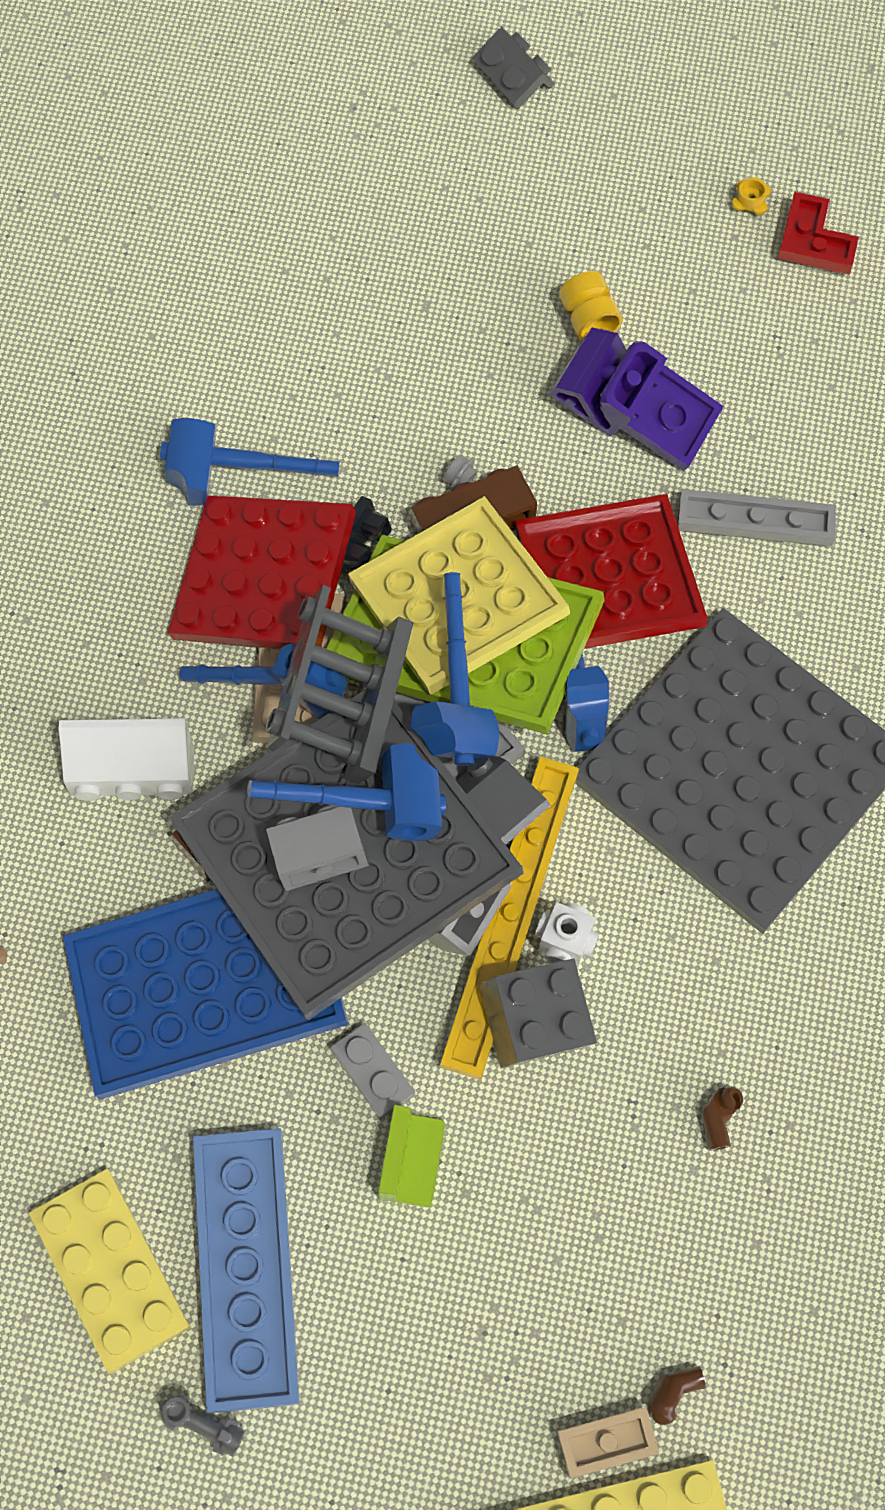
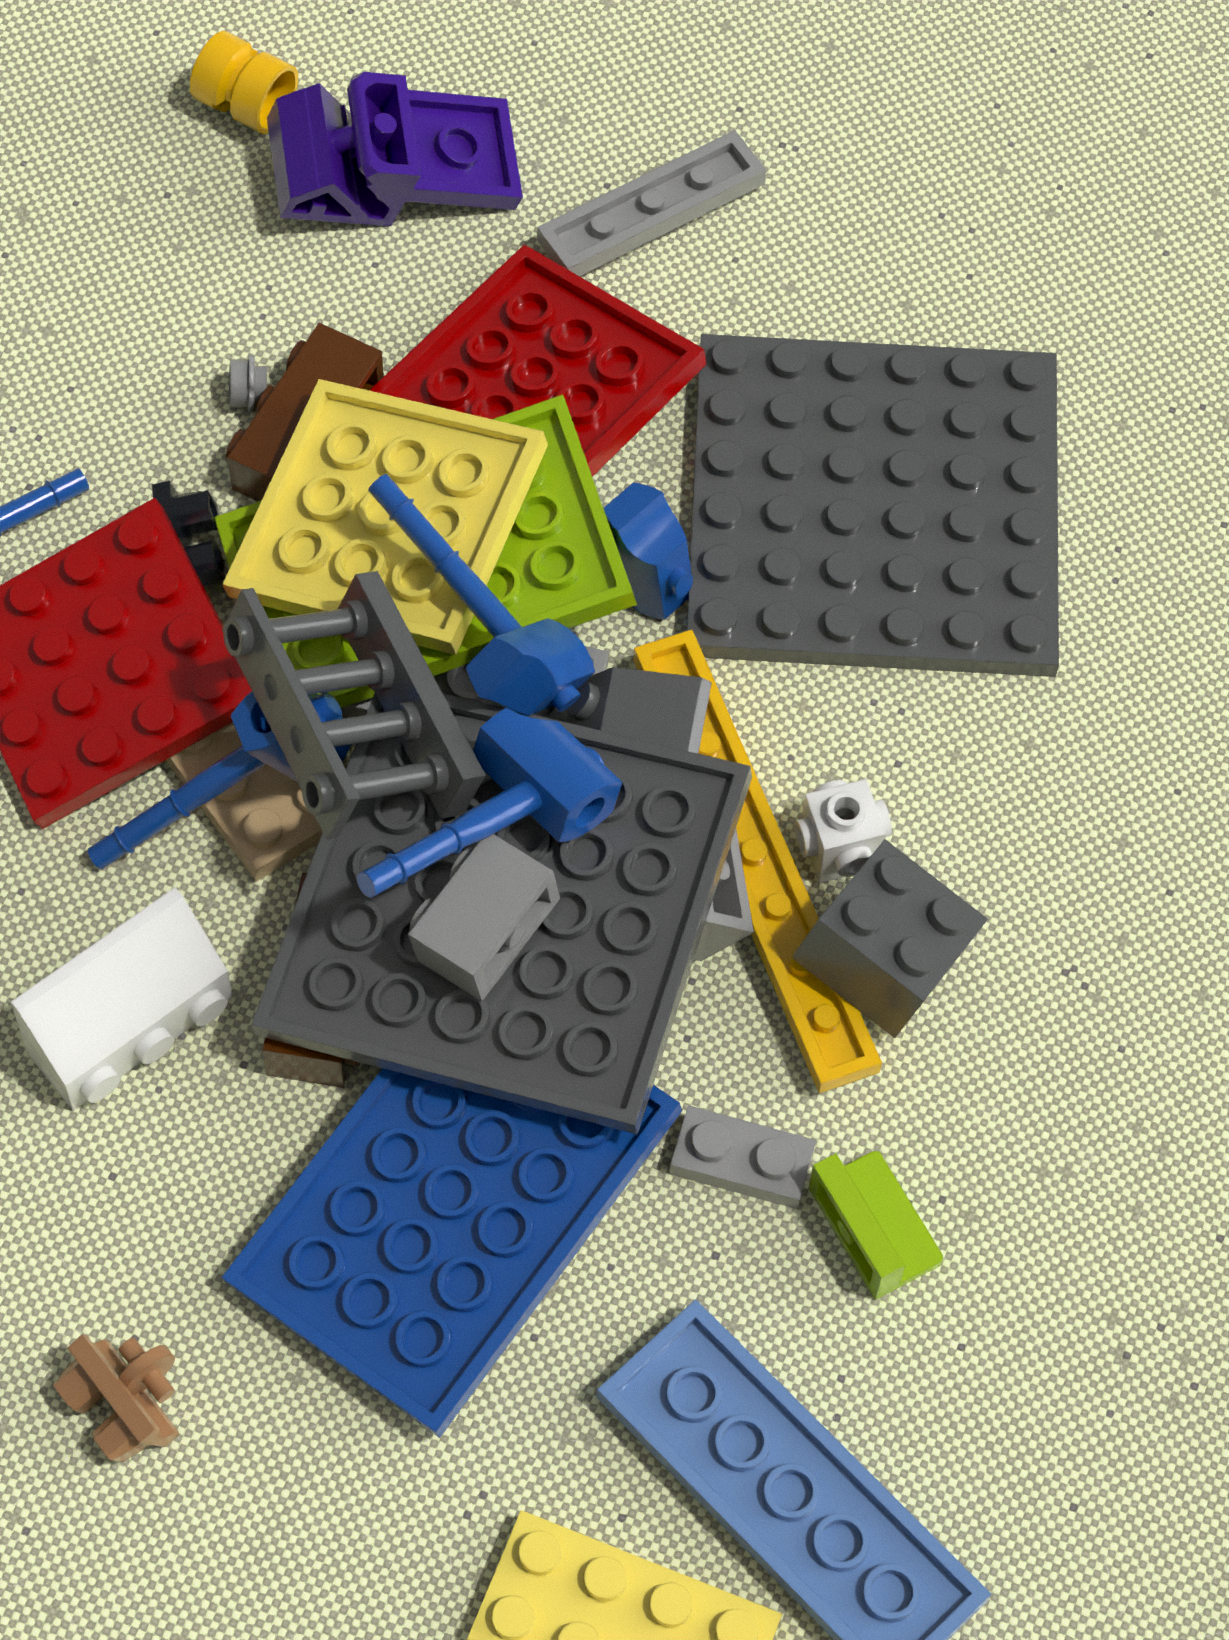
camera: 40 degrees left, 5 degrees down
(716, 1115) = (1178, 911): reddish brown arm -> none

